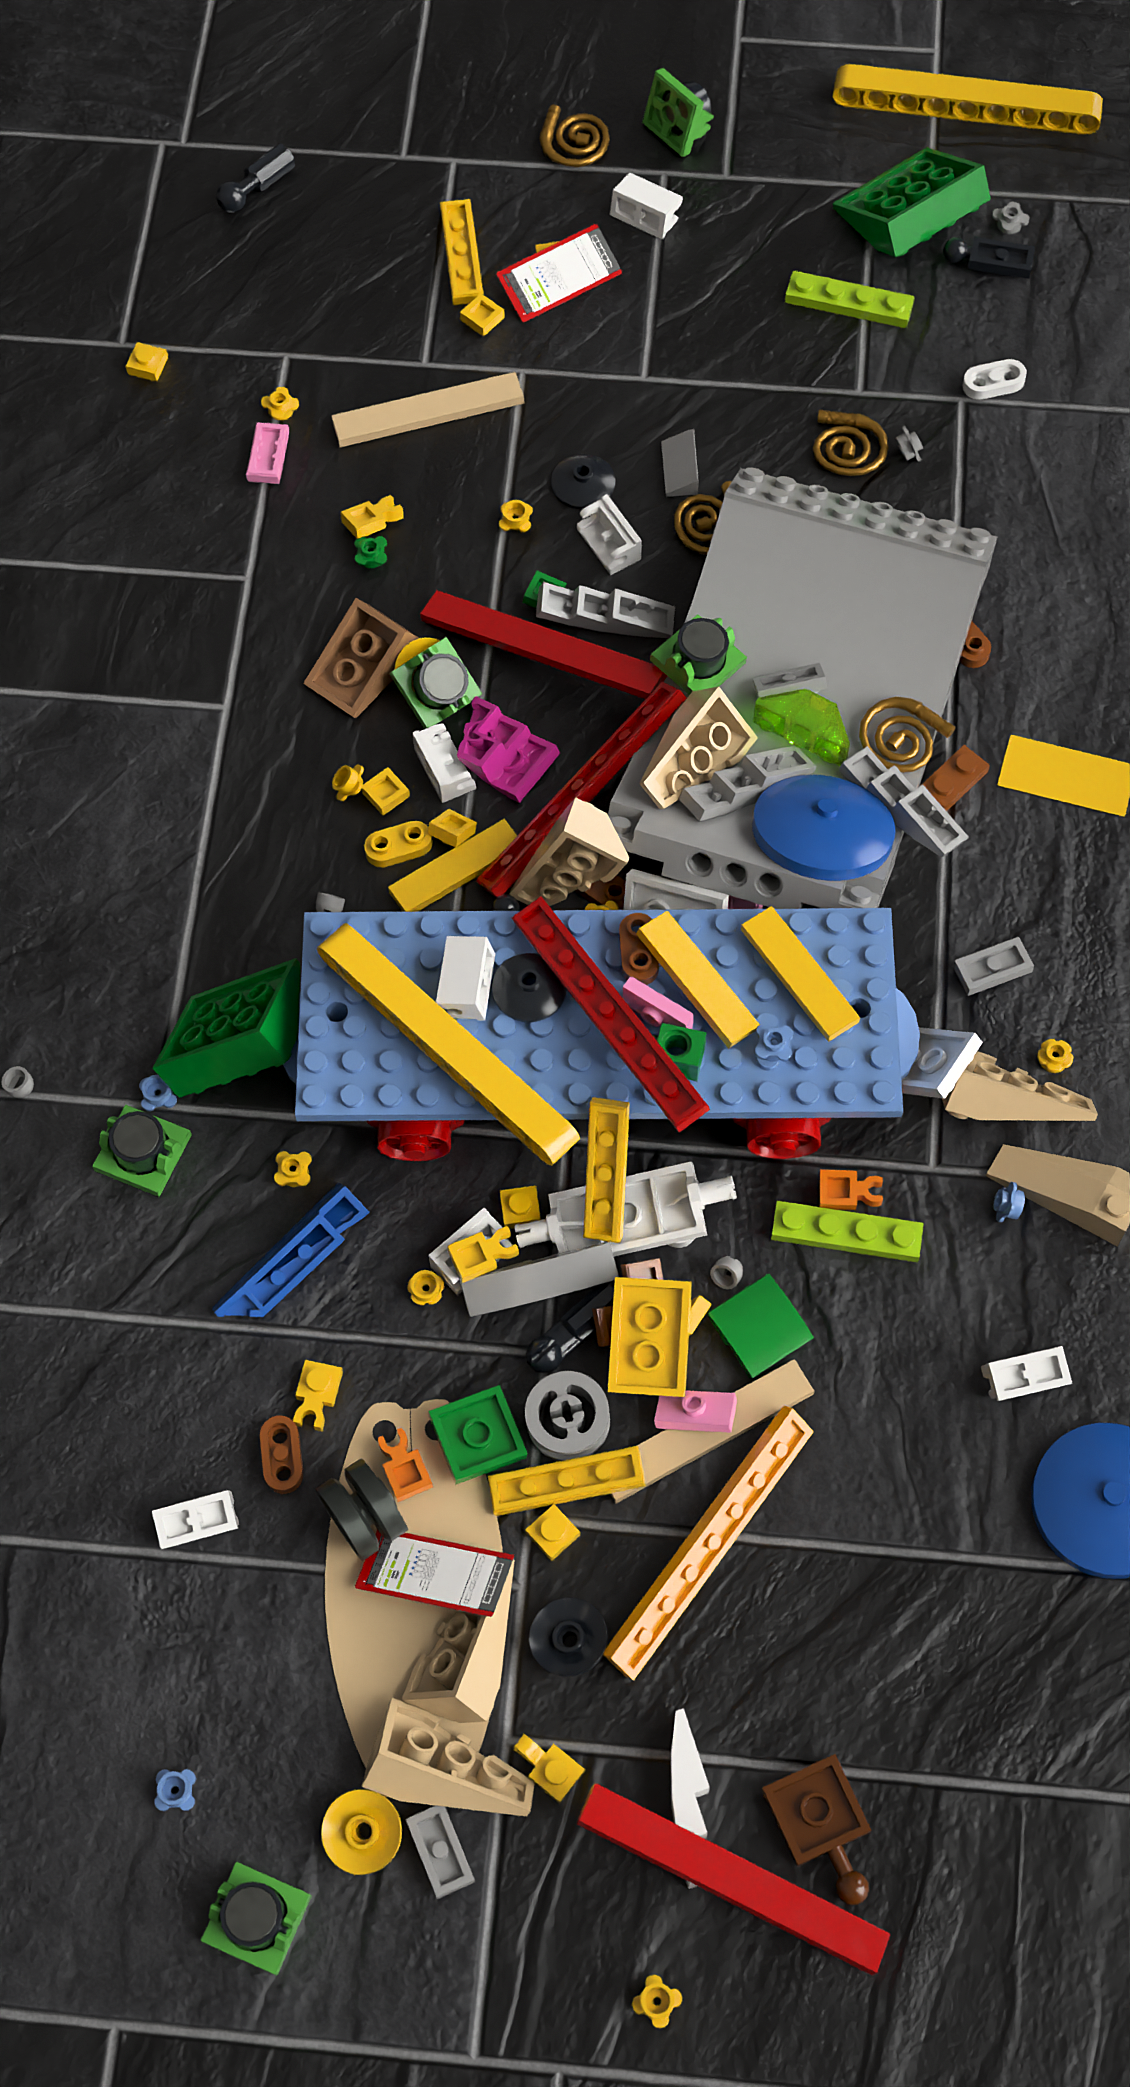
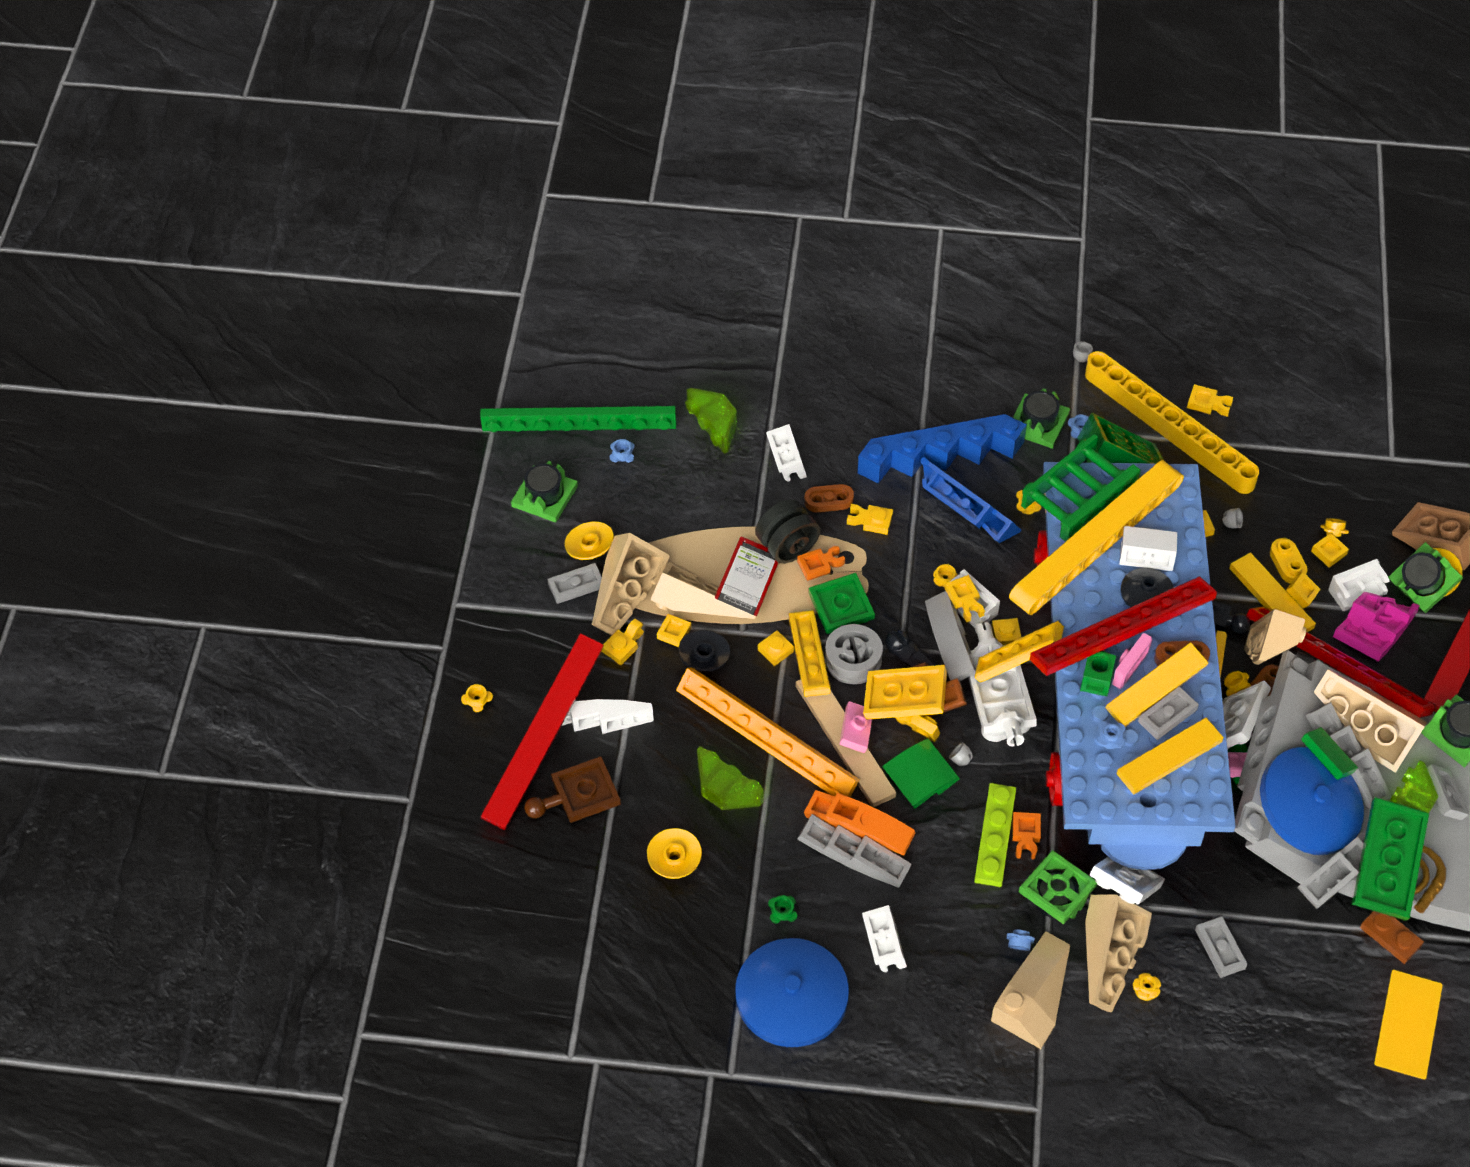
camera: 90 degrees right, 10 degrees down
(110, 1885) = (578, 418): none -> green plate
(114, 1636) = (714, 415): none -> clear neon green slope
(121, 923) = (1206, 400): none -> yellow plate
(150, 986) = (1172, 422): none -> yellow beam
(194, 1287) = (941, 446): none -> blue brick
(372, 1026) = (1088, 508): none -> green fence
(528, 1686) = (673, 630): none -> yellow plate
(739, 969) = (1168, 713): none -> light grey plate
(762, 796) = (1329, 753): none -> green tile
(795, 1601) = (725, 784): none -> clear neon green slope
(849, 1408) = (861, 820): none -> orange slope
(890, 1417) = (856, 853): none -> light grey slope
(897, 749) = (1390, 859): none -> green tile
(921, 1649) = (671, 843): none -> yellow dish
(938, 1152) = (1057, 891): none -> bright green piece
(993, 1504) = (782, 902): none -> green plate

